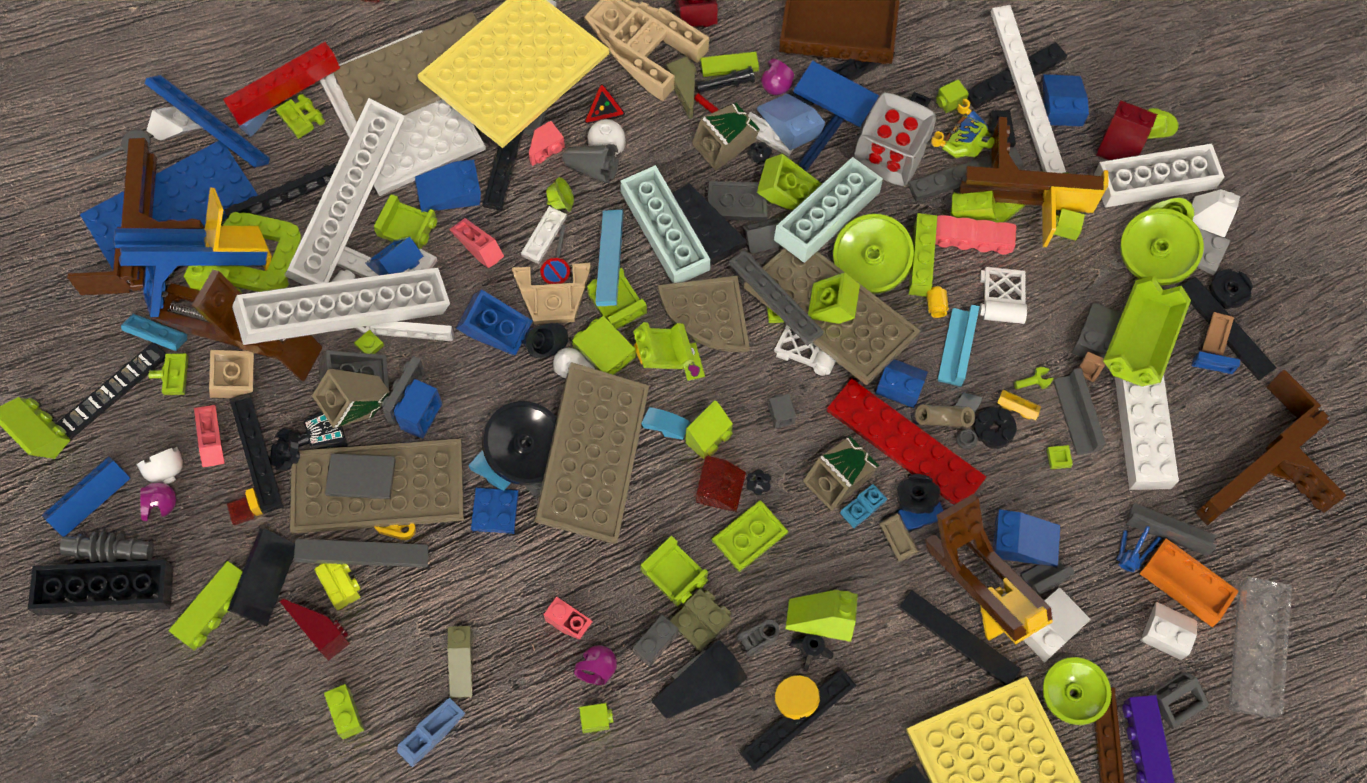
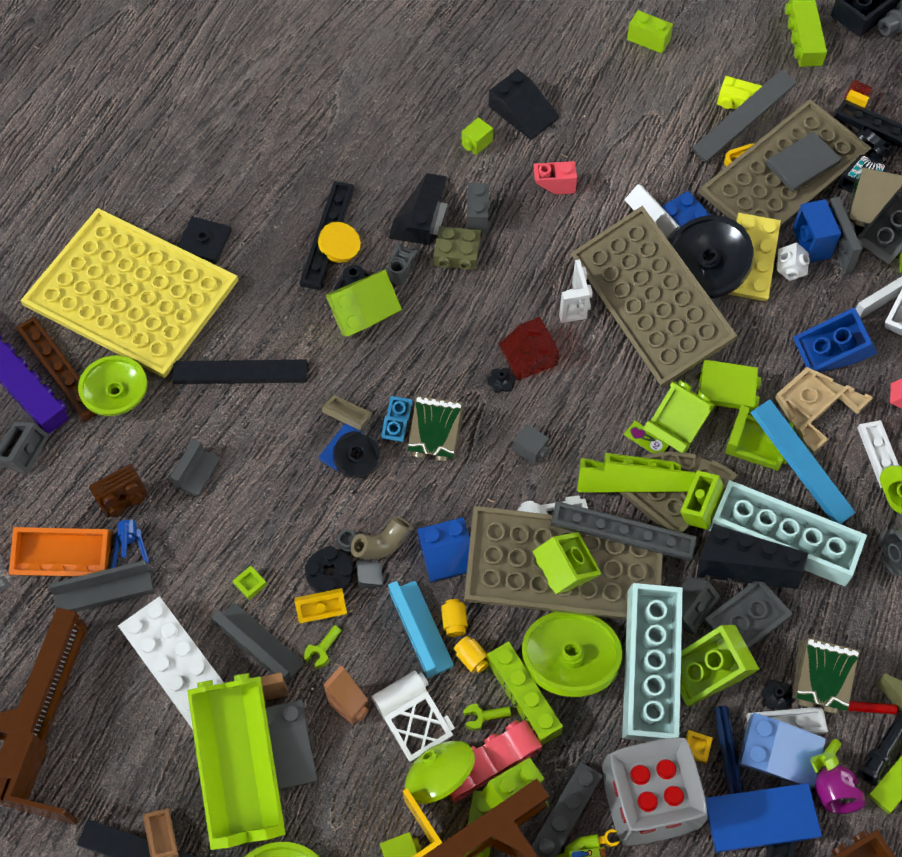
camera: 145 degrees right, 5 degrees down
(262, 577) = (788, 51): black tile -> none
(326, 635) = (724, 55): dark red slope -> none
(430, 732) = (581, 59): medium blue slope -> none
(459, 402) = (793, 261): none -> white brick
(460, 661) = (608, 110): slope -> none
(464, 438) = (764, 238): none -> light yellow plate
(519, 529) = (639, 197): none -> white tile
(526, 721) = (522, 104): none -> black slope
(545, 339) = (781, 356): black piece -> none
(556, 269) = (840, 432): piece -> none
(565, 357) = (741, 355): white piece -> none
(598, 660) = (505, 163): magenta helmet -> none
(652, 484) = (576, 301): none -> white bracket
(669, 423) = (617, 365): dark azure slope -> none
(674, 572) = (506, 265): lime panel -> none
(705, 275) = (702, 500): none -> lime brick
(709, 430) = (575, 378): lime slope -> none
(731, 333) = (632, 474): none -> lime wedge
(749, 536) = (472, 333): lime tile -> none
(768, 95) = (828, 758): none -> lime bar
(835, 159) = (699, 745): none -> yellow tile
(905, 442) = (408, 497): red plate -> none
(931, 333) = (454, 618): none -> yellow brick
(965, 263) = (484, 715): none -> lime bar
(1008, 234) = (439, 771): none -> lime dish
(1010, 610) = (206, 381): reddish brown piece -> none
(1026, 538) = (233, 483): blue slope -> none
(1045, 326) = (346, 696): none -> nougat slope
(1066, 623) = (166, 430): white slope -> none
(1122, 589) = (119, 491): none -> reddish brown brick
(1170, 631) = (56, 495): white slope -> none
(1215, 362) = (145, 799): blue tile -> none

